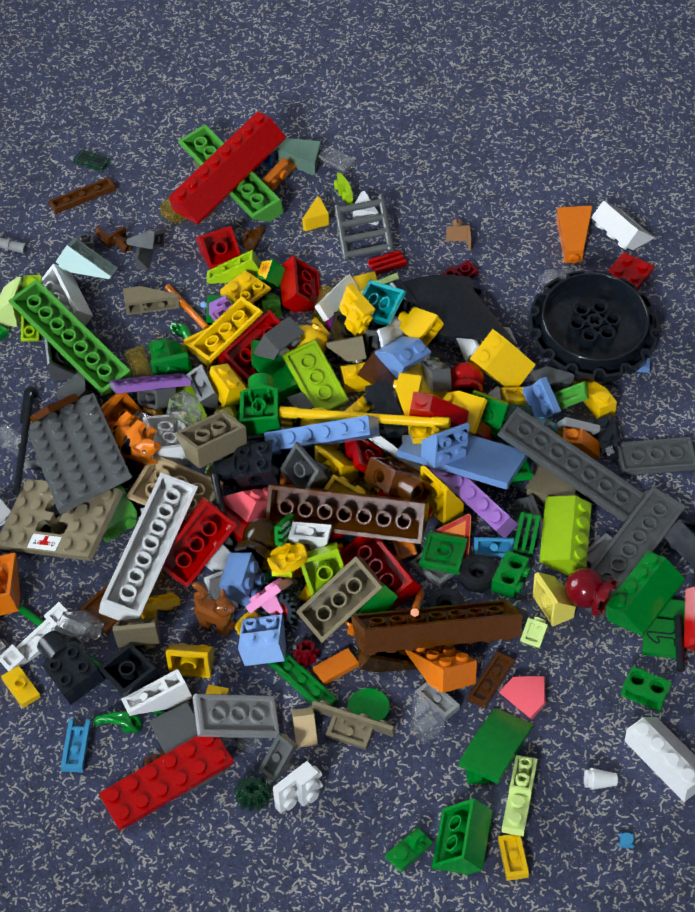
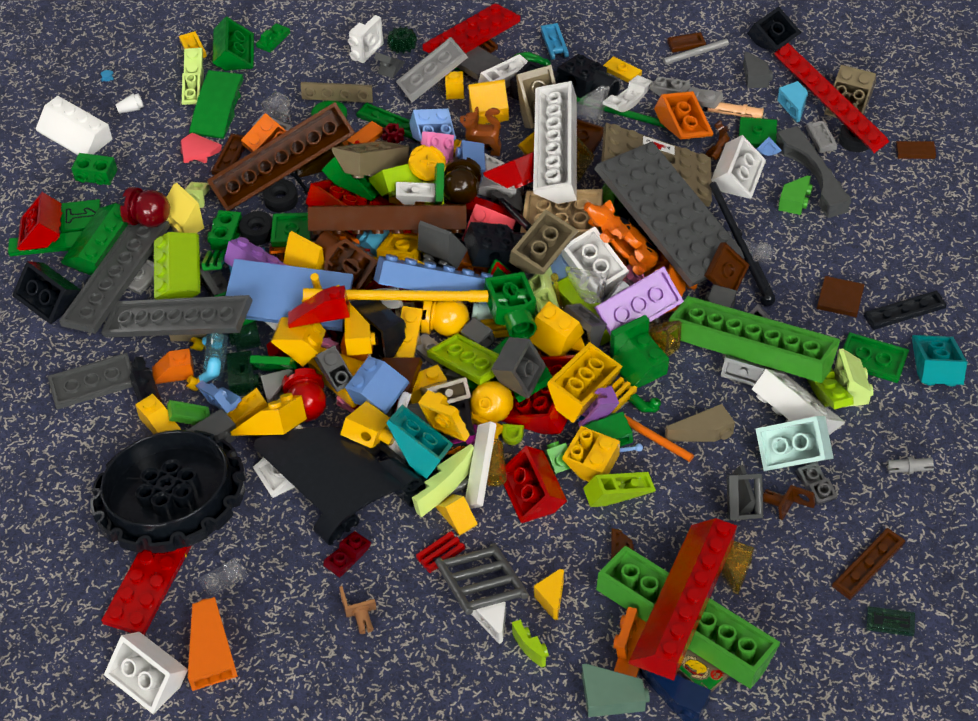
camera: 165 degrees right, 0 degrees up
(218, 246) = (656, 518): red slope -> none
(271, 273) = (572, 482): green brick -> none
(304, 727) = (381, 92): tan slope -> none
(337, 159) = (558, 699): clear plate -> none
(417, 603) = (301, 166): orange bar -> none
(446, 446) = (298, 267): medium blue slope -> none
(567, 422) = (175, 376): light grey tile -> none
(679, 643) = (65, 207): black bar -> none

